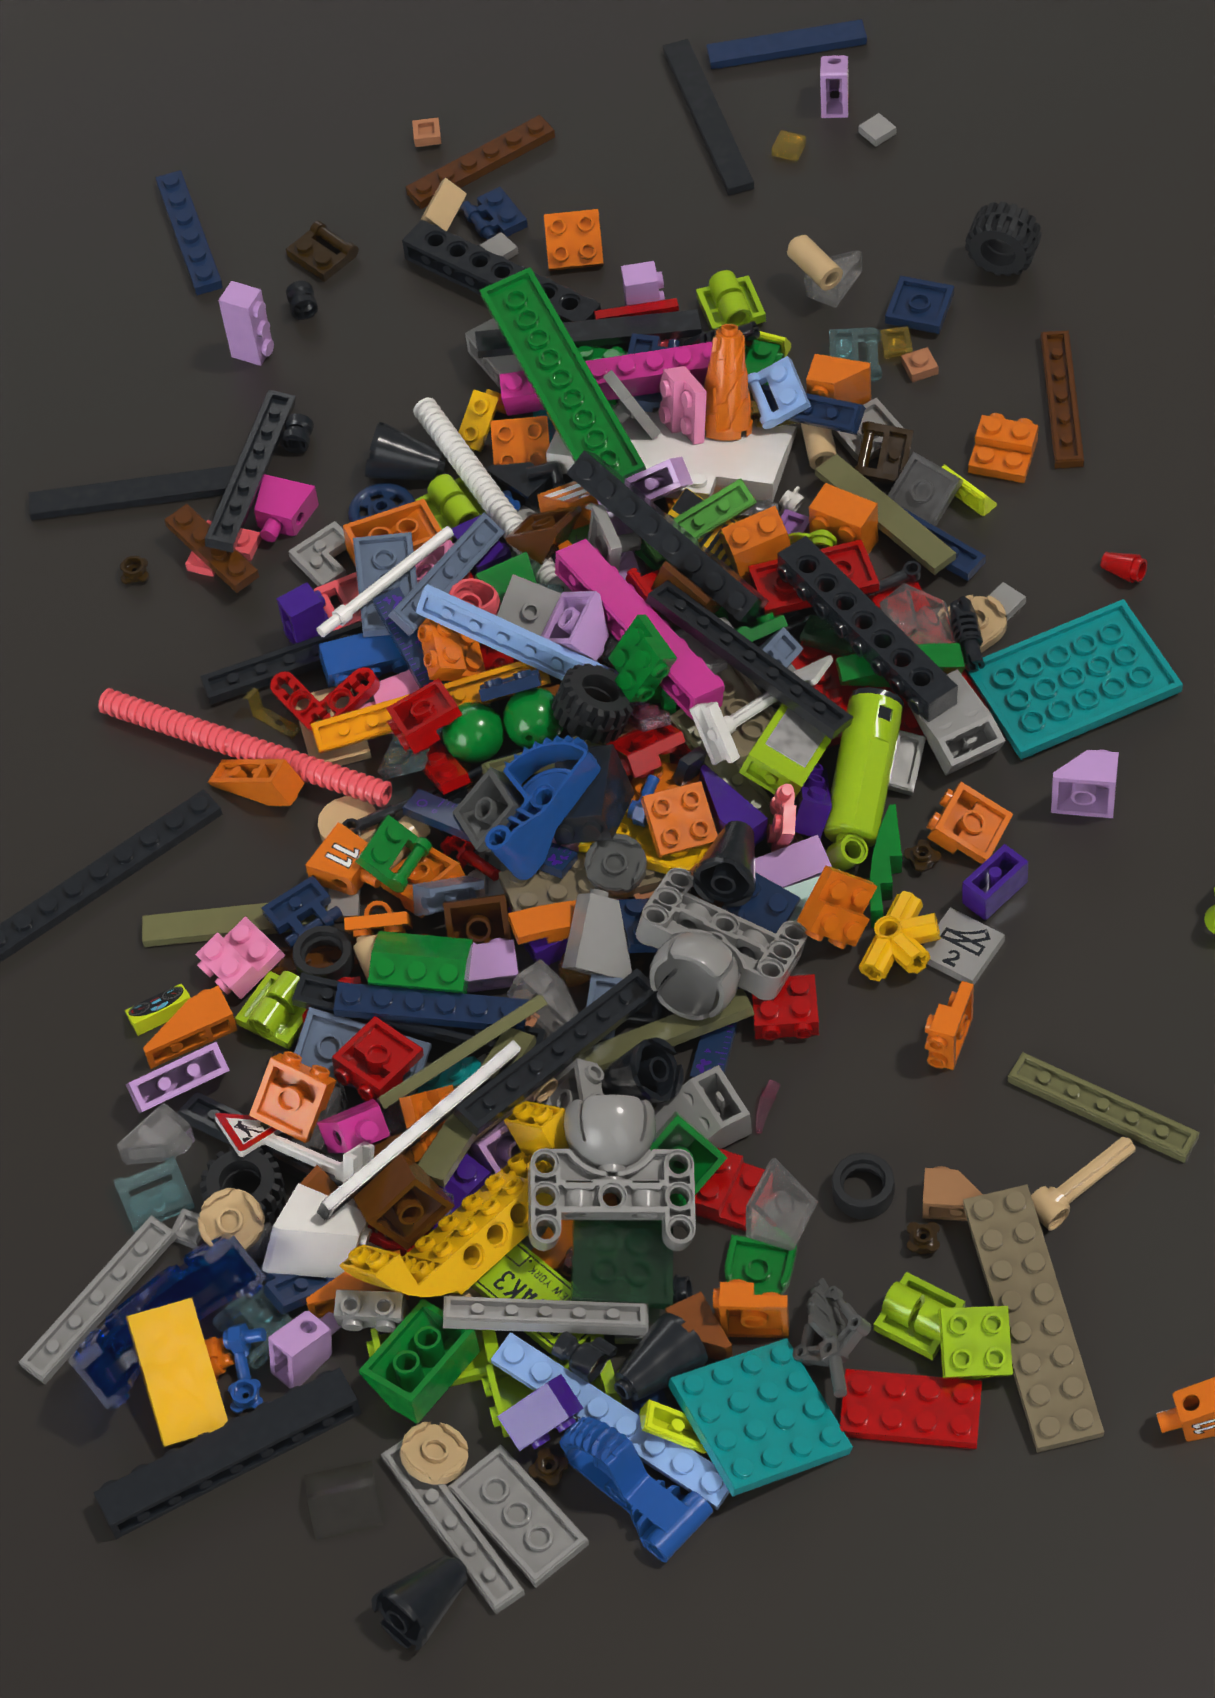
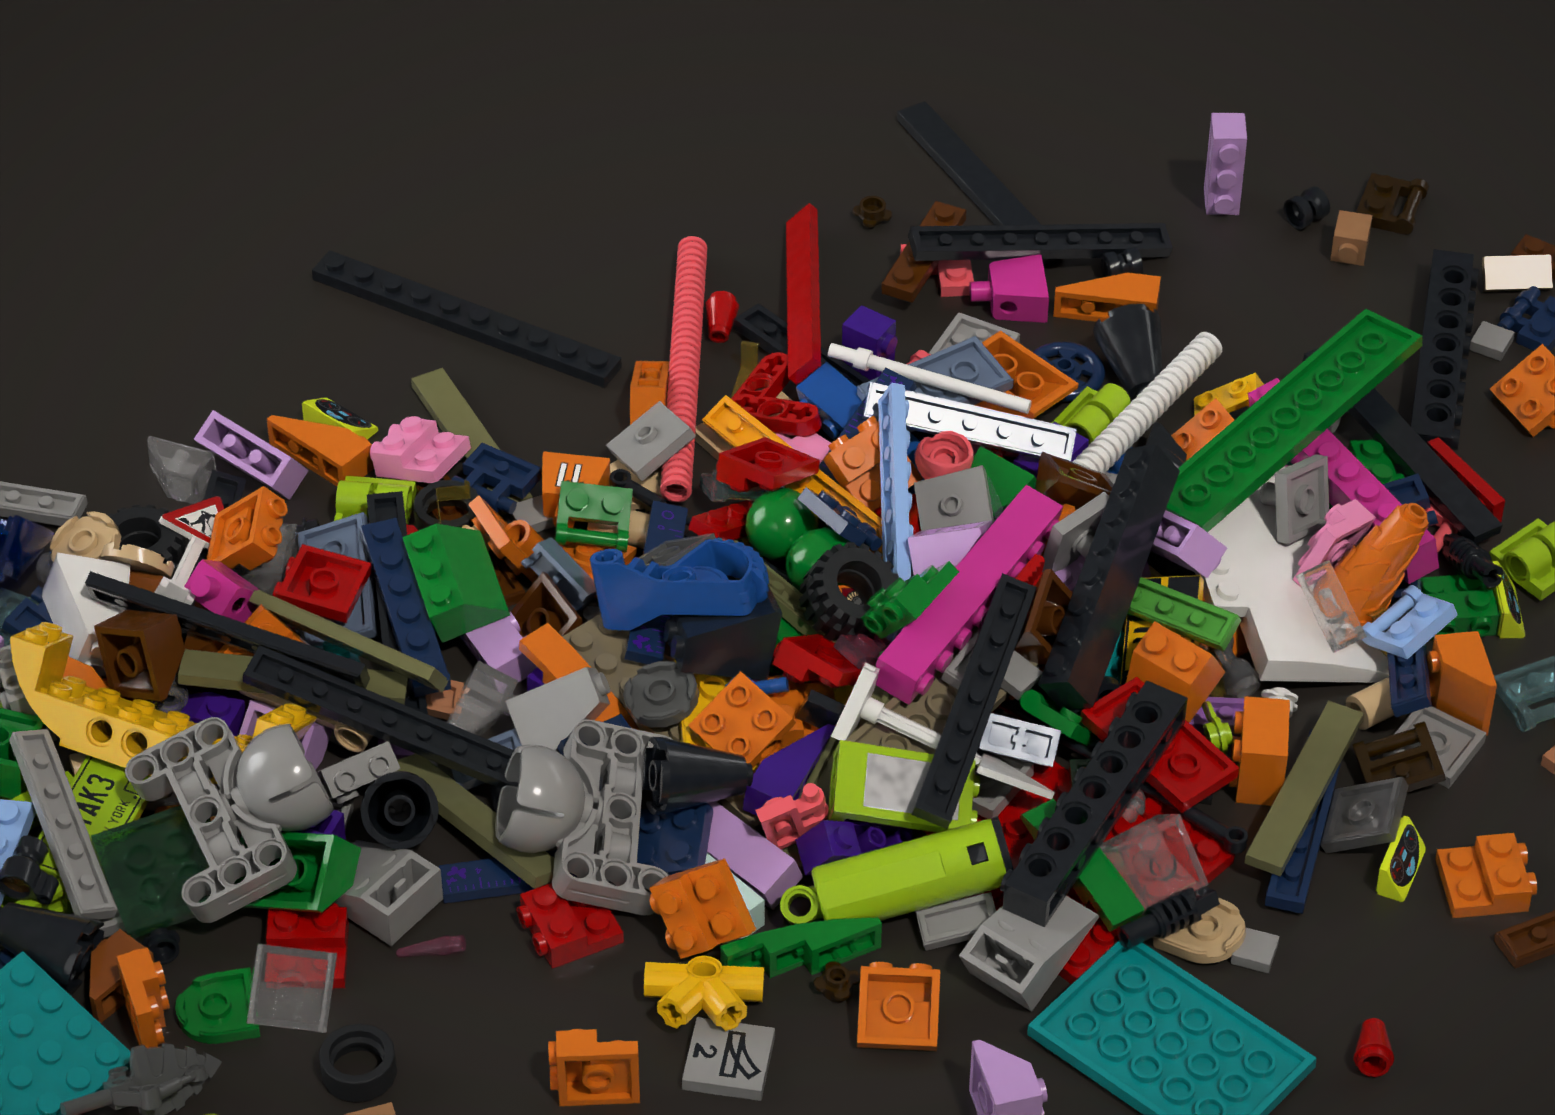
camera: 60 degrees right, 10 degrees down
(160, 1201) = (107, 497): clear light blue plate -> none
(189, 232) = (1347, 96): dark blue plate -> none
(195, 704) = (721, 311): none -> red cone
(216, 639) = (803, 294): none -> red tile
(291, 1179) = (139, 558): none -> tan tile
(327, 791) = (651, 440): none -> light grey plate
(331, 954) = (452, 493): none -> clear yellow piece
(333, 446) = (1098, 296): none -> orange slope
(350, 286) = (1351, 238): none -> medium nougat brick
(642, 283) = (1496, 459): lavender brick -> none
(746, 426) = (1331, 606): none -> clear slope
(995, 882) = (821, 1052): dark purple brick -> none

